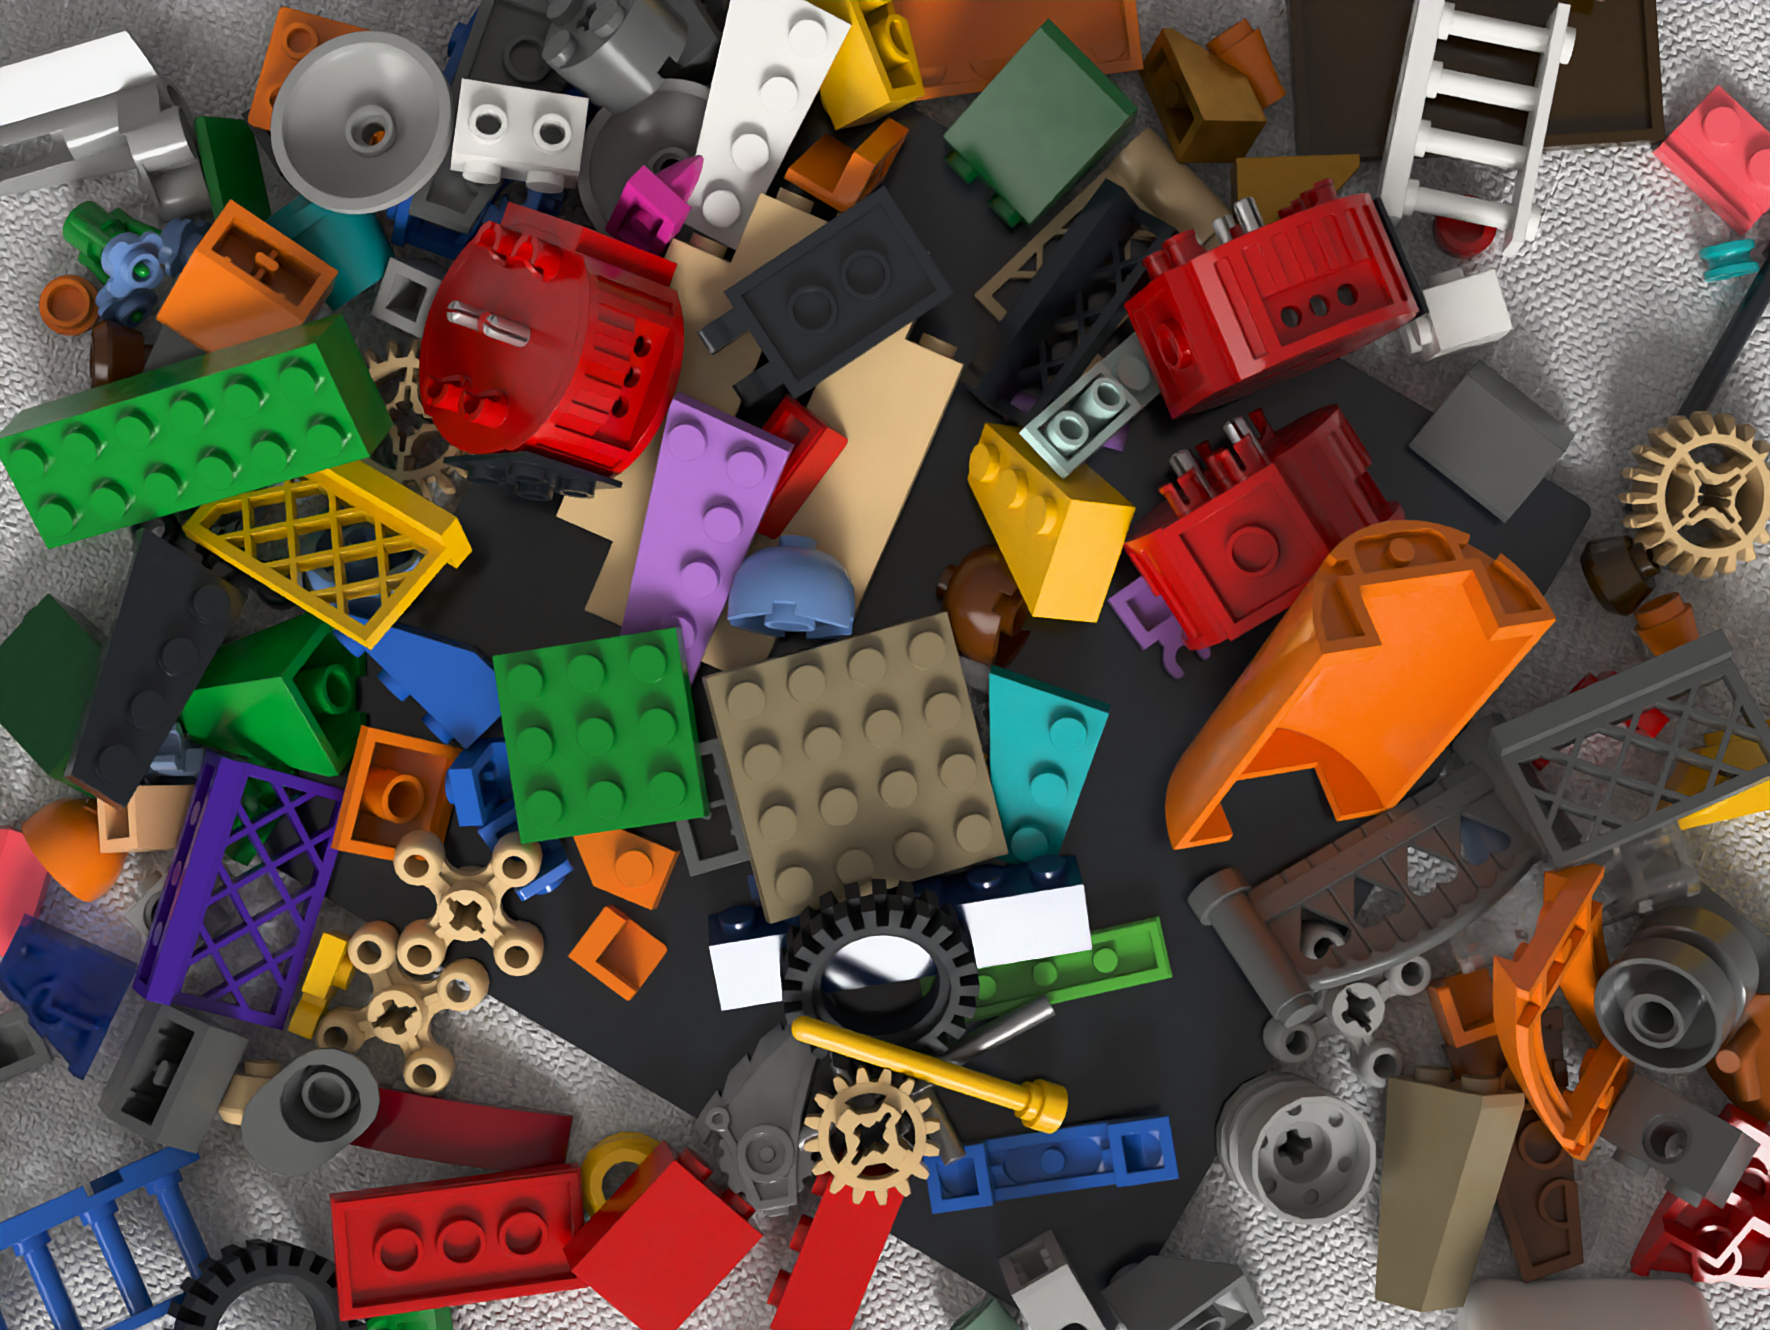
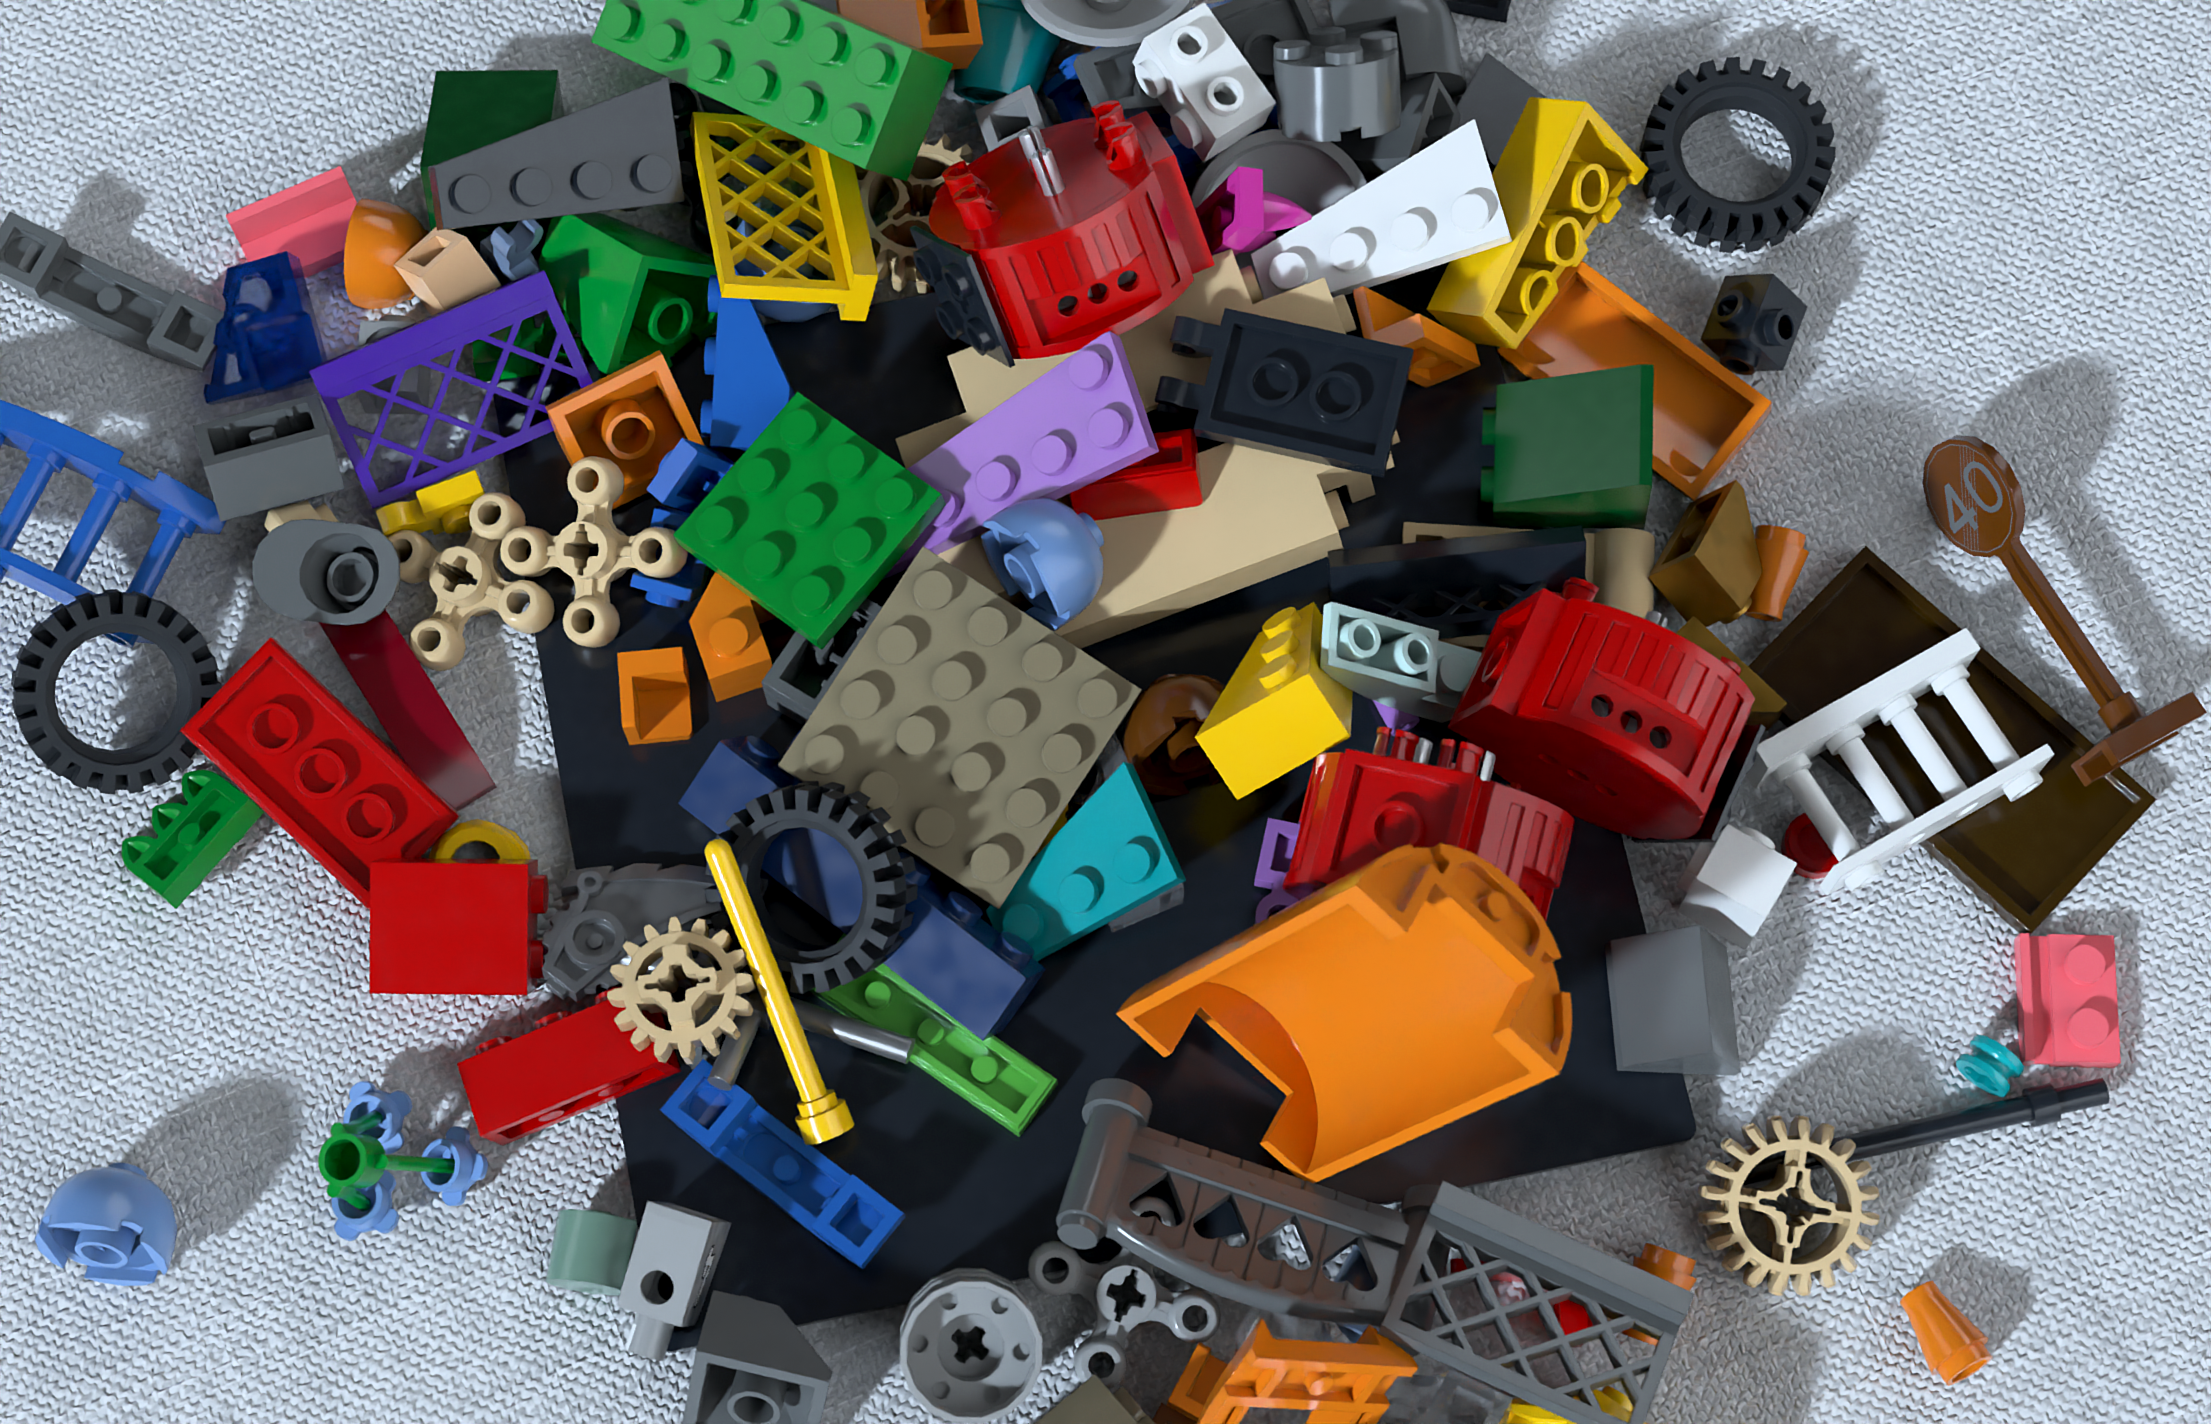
camera: 40 degrees right, 15 degrees down
(1619, 572) = (1664, 1197): dark brown cone -> none

